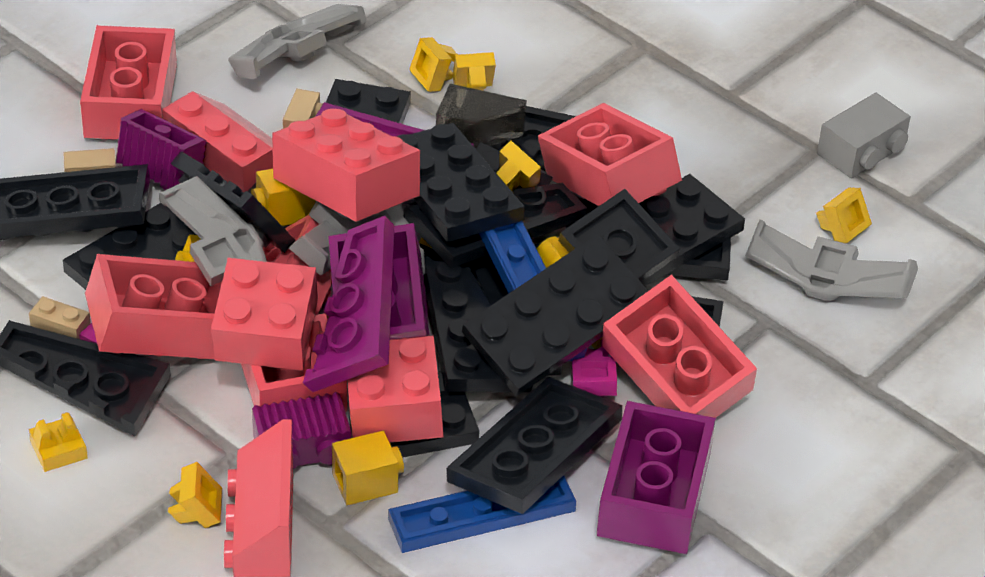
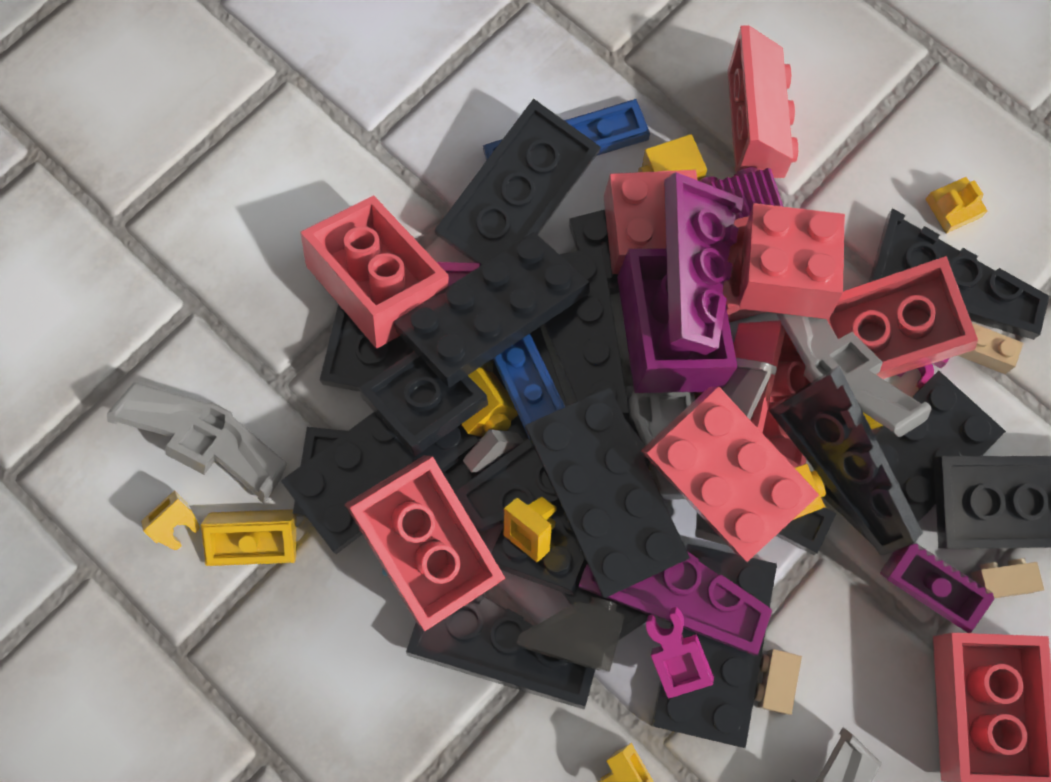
camera: 175 degrees left, 30 degrees up
(197, 497) = (819, 135): yellow tile -> none
(233, 144) = (857, 622): coral slope -> none
(389, 104) = (678, 659): none -> dark pink plate
(474, 70) = (576, 758): yellow tile -> none
(551, 226) = (491, 448): none -> light grey tile
(656, 477) = (409, 148): magenta brick -> none
(784, 213) = (249, 537): none -> yellow slope
(863, 135) = (117, 655): light grey brick -> none

